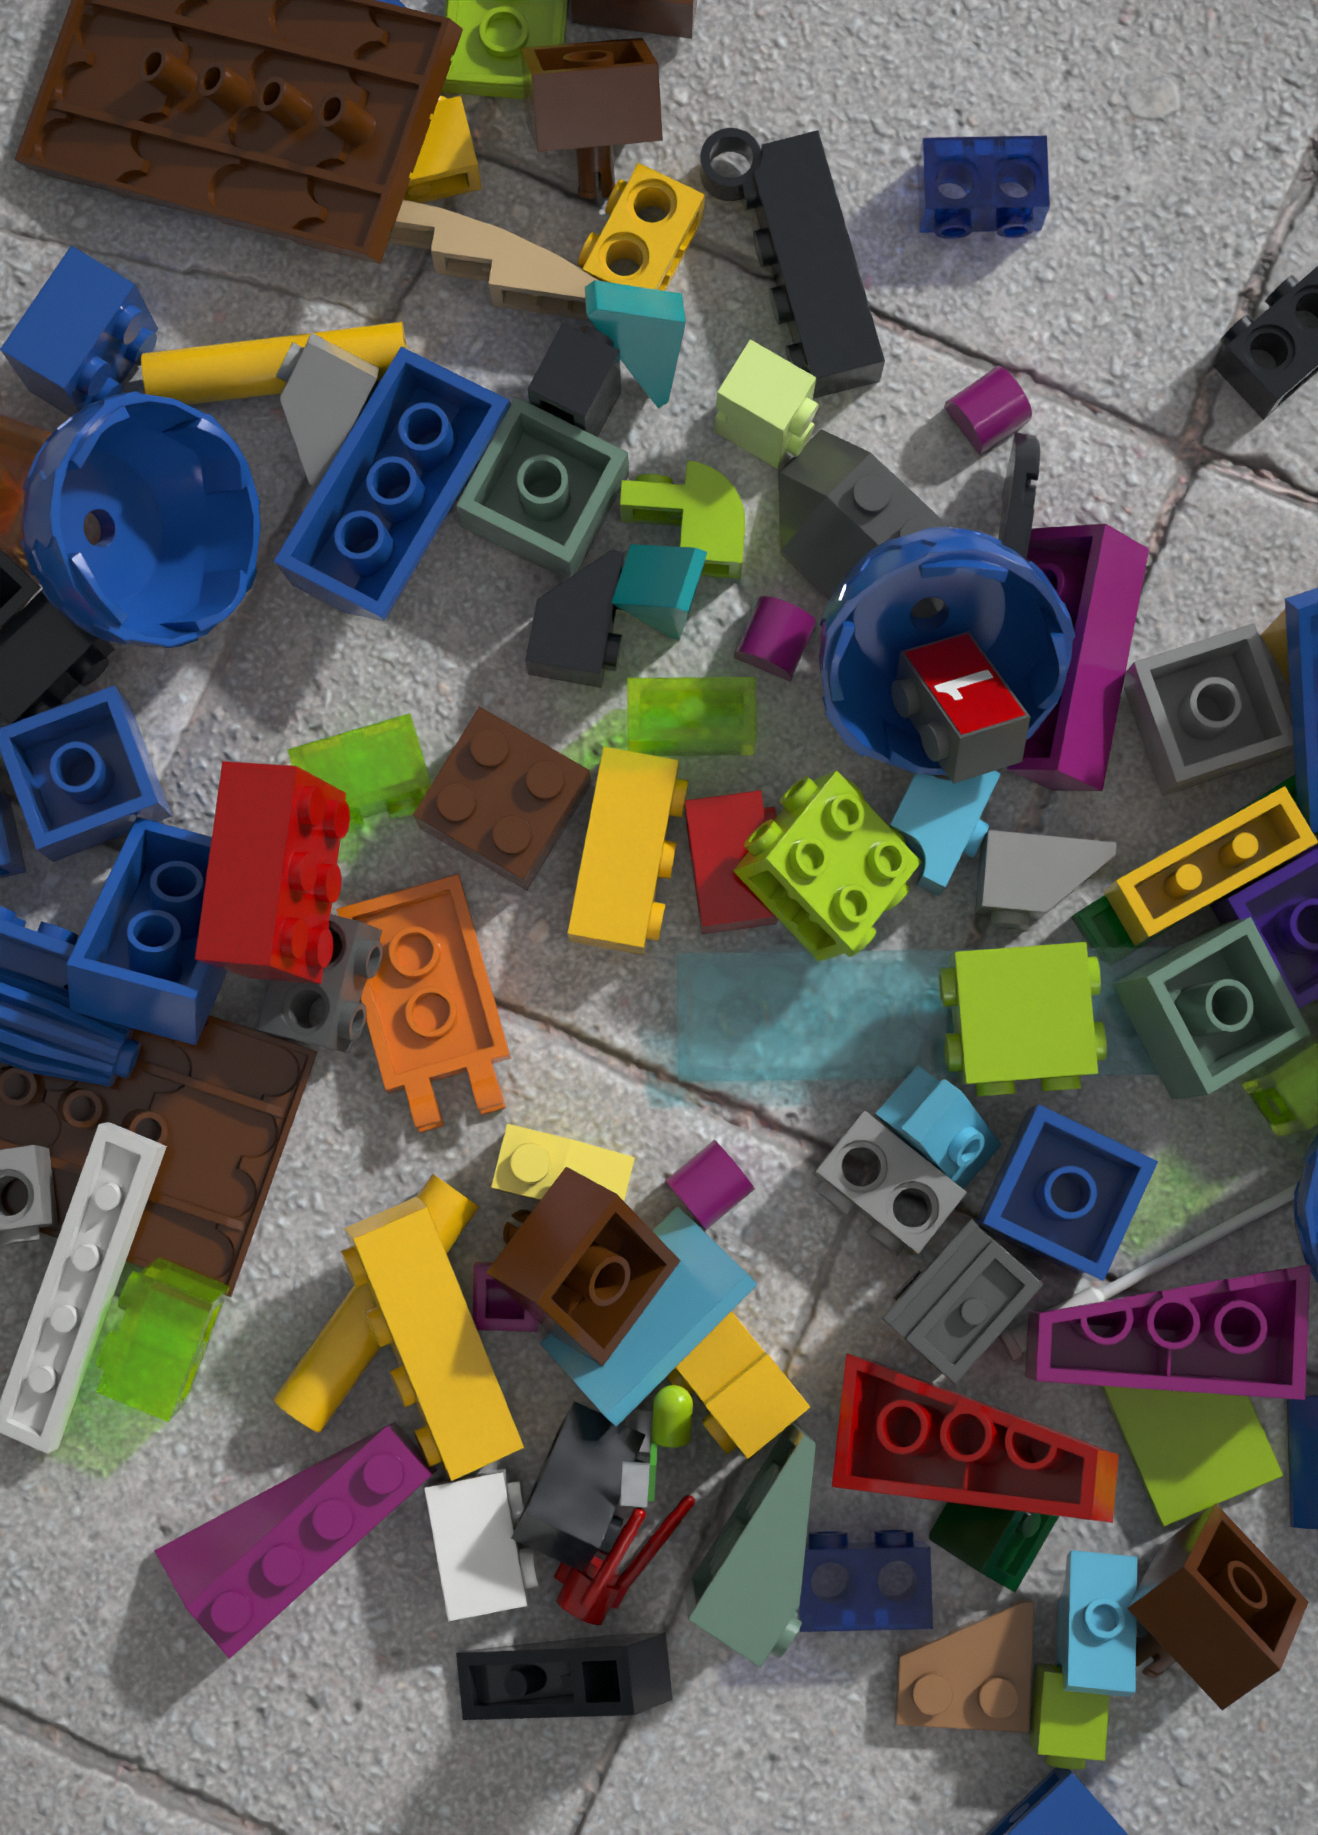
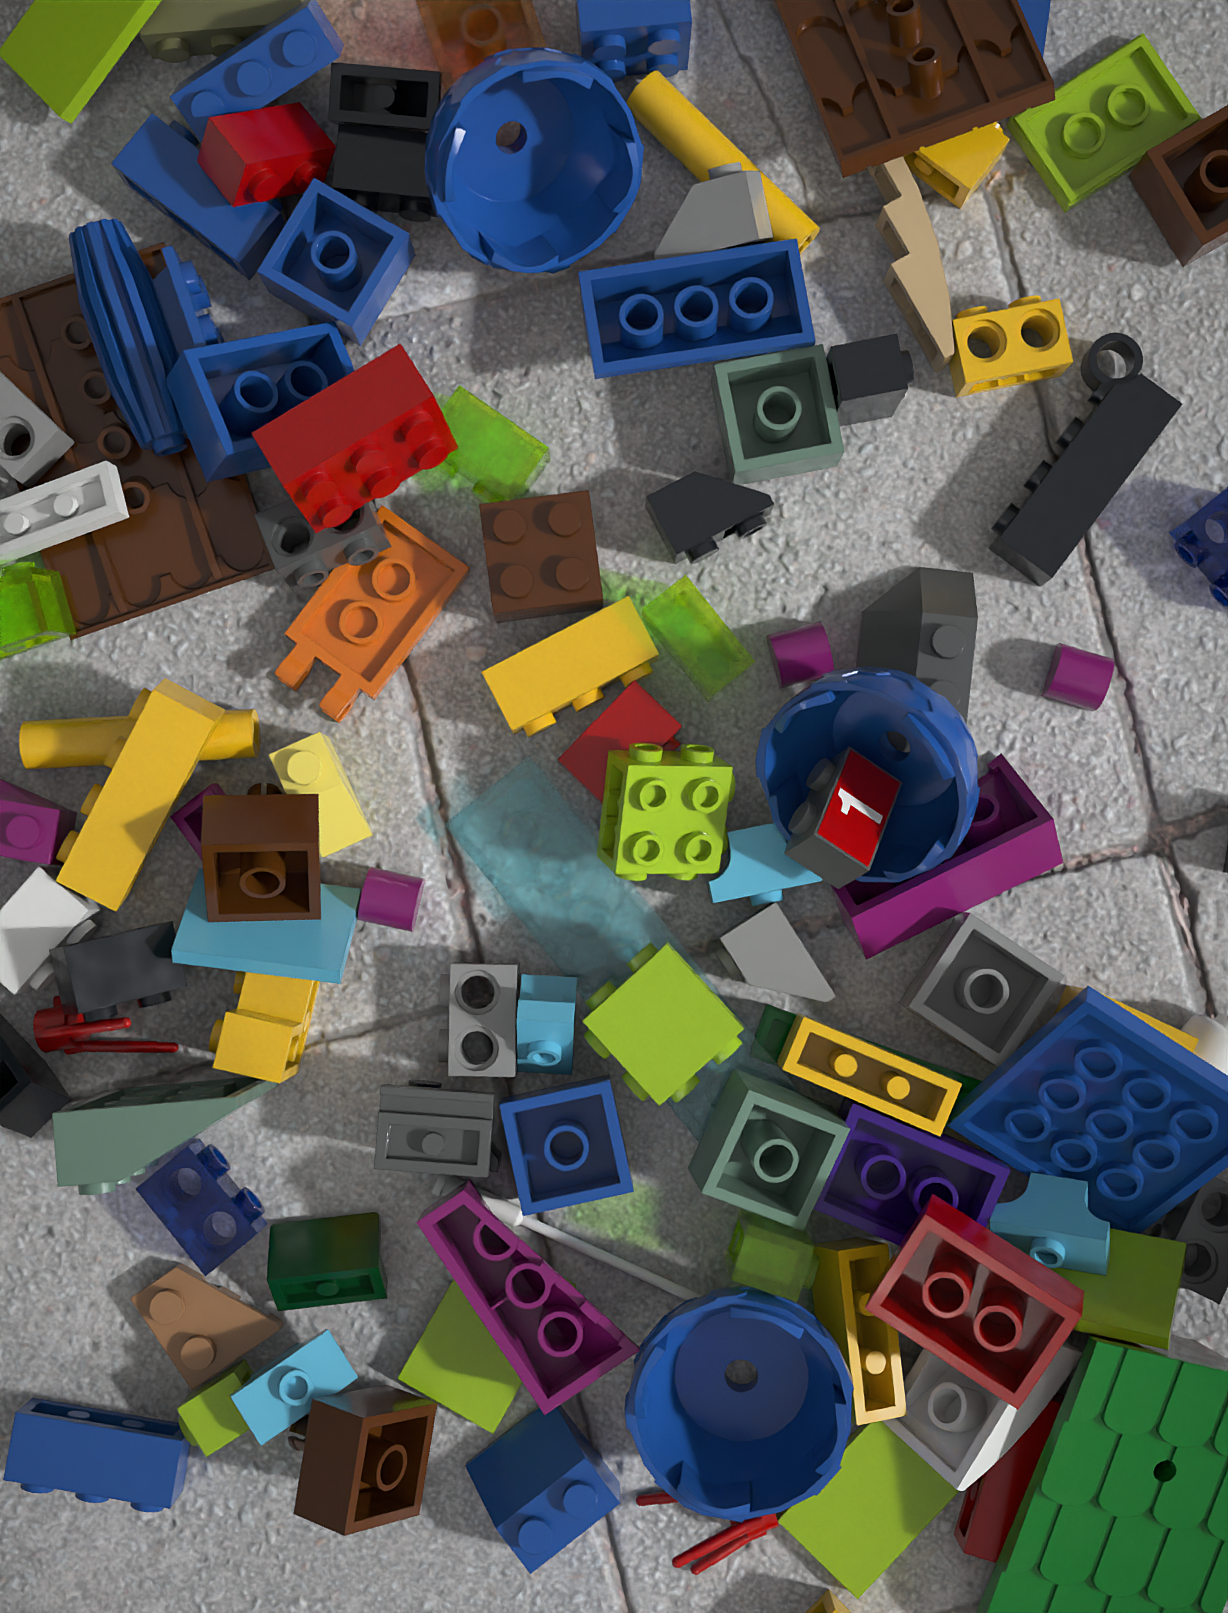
camera: 50 degrees right, 5 degrees up
(591, 100) = (1076, 231): reddish brown brick -> none
(644, 327) = (941, 392): teal slope -> none
(660, 585) = (770, 547): teal slope -> none
(665, 1425) = (201, 997): piece -> none
(704, 507) = (851, 534): lime brick -> none
(766, 405) = (955, 520): yellowish green brick -> none
(946, 1447) = (334, 1205): red wedge -> none
(1018, 494) = (1028, 745): black tile -> none

